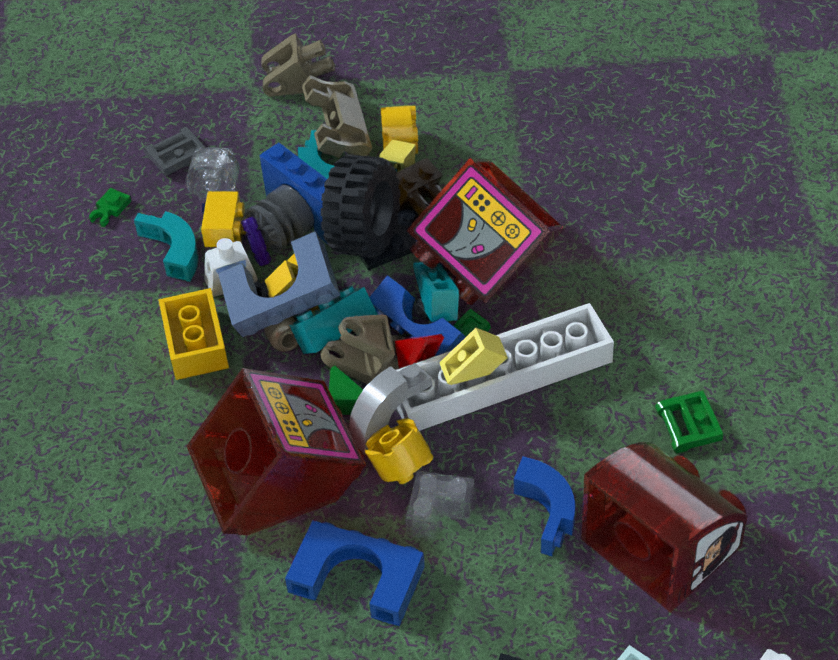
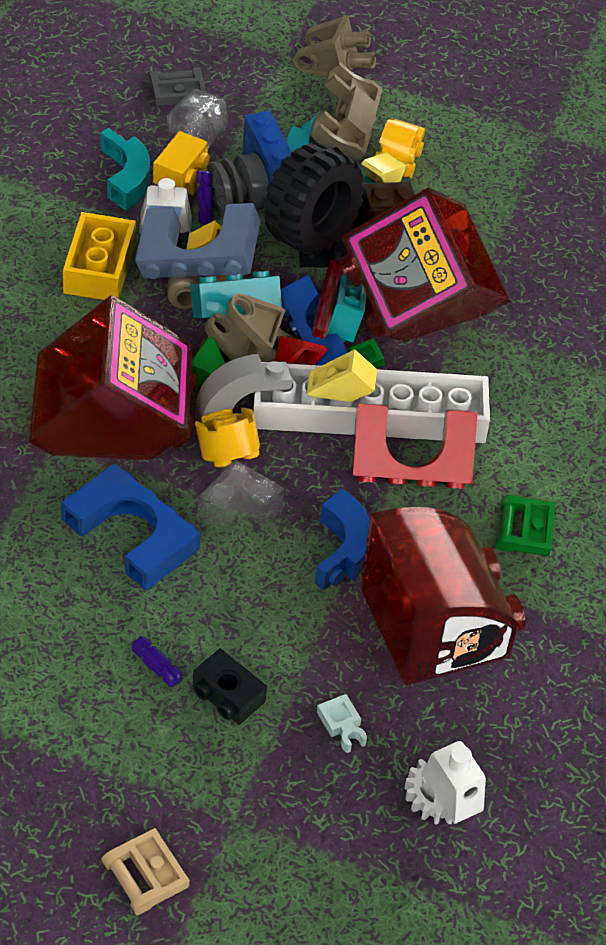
camera: 15 degrees right, 0 degrees up
(111, 203) = (90, 111): green plate -> none
(416, 291) = (327, 299): none -> dark red axle
(599, 394) = (450, 465): none -> arch

